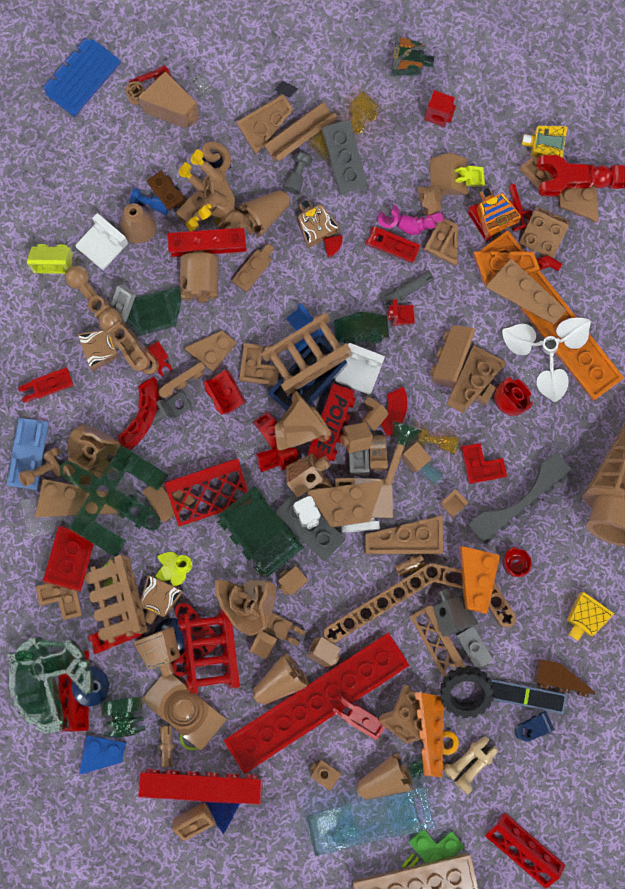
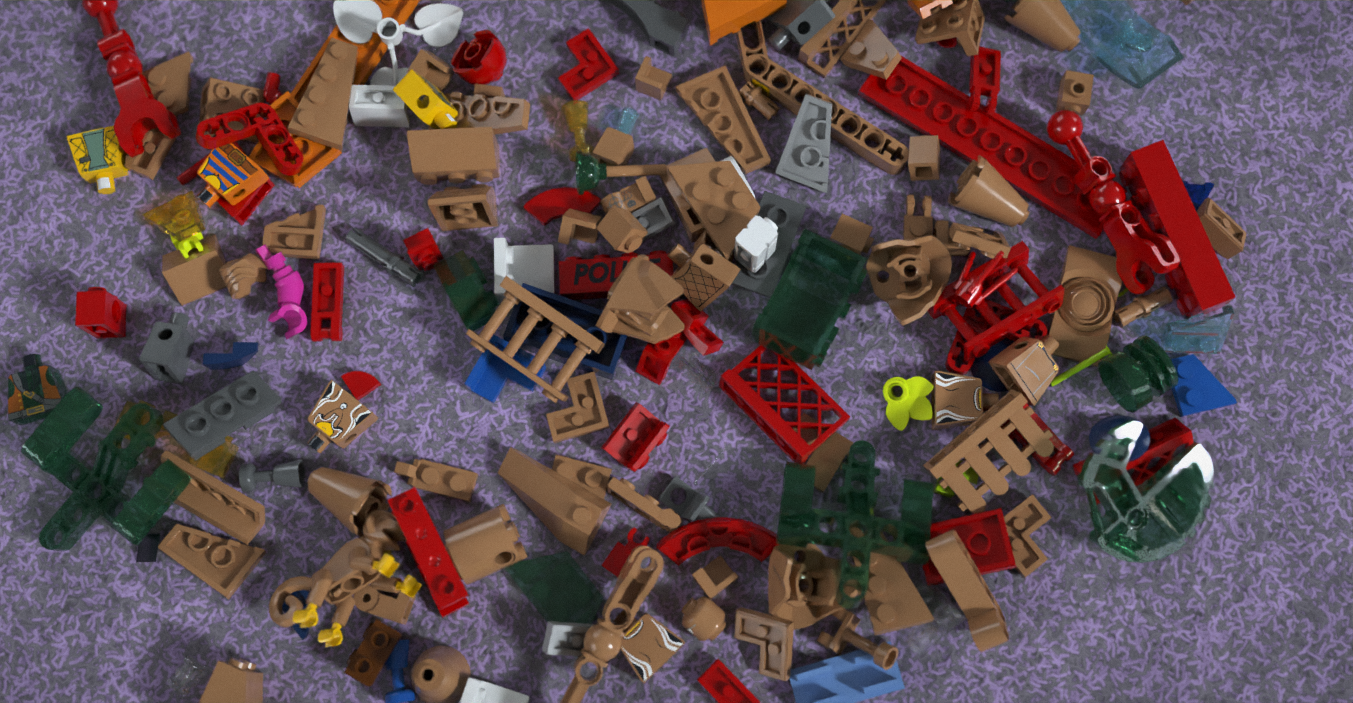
camera: 105 degrees left, 5 degrees down
(40, 546) = (969, 590): none -> medium nougat beam
(71, 420) = (773, 636): none -> medium nougat tile
(99, 386) = (703, 618): none -> medium nougat head
(120, 403) = (715, 577): none -> medium nougat panel
(131, 769) = (1198, 333): none -> clear light blue wing
(146, 687) = (1089, 361): none -> lime piece
(205, 332) = (560, 504): none -> medium nougat wedge
(219, 635) = (969, 292): none -> red plant
(242, 754) = (1133, 240): none -> red piece
(251, 658) = (974, 237): none -> medium nougat wing
(363, 55) = (51, 452): none -> clear green piece
(363, 580) = (808, 145): none -> light grey wing
(381, 182) = (241, 354): none -> dark blue slope
(402, 141) = (168, 350): none -> dark grey torso
(411, 654) = (872, 52): none -> medium nougat wing
(416, 348) = (464, 207): none -> medium nougat slope
(486, 175) = (178, 217): none -> clear yellow wing
(493, 351) = (433, 108): none -> yellow torso
(509, 323) = (377, 107): none -> white panel
(517, 249) = (260, 128): none -> red beam
(521, 366) = (432, 69): none -> medium nougat panel

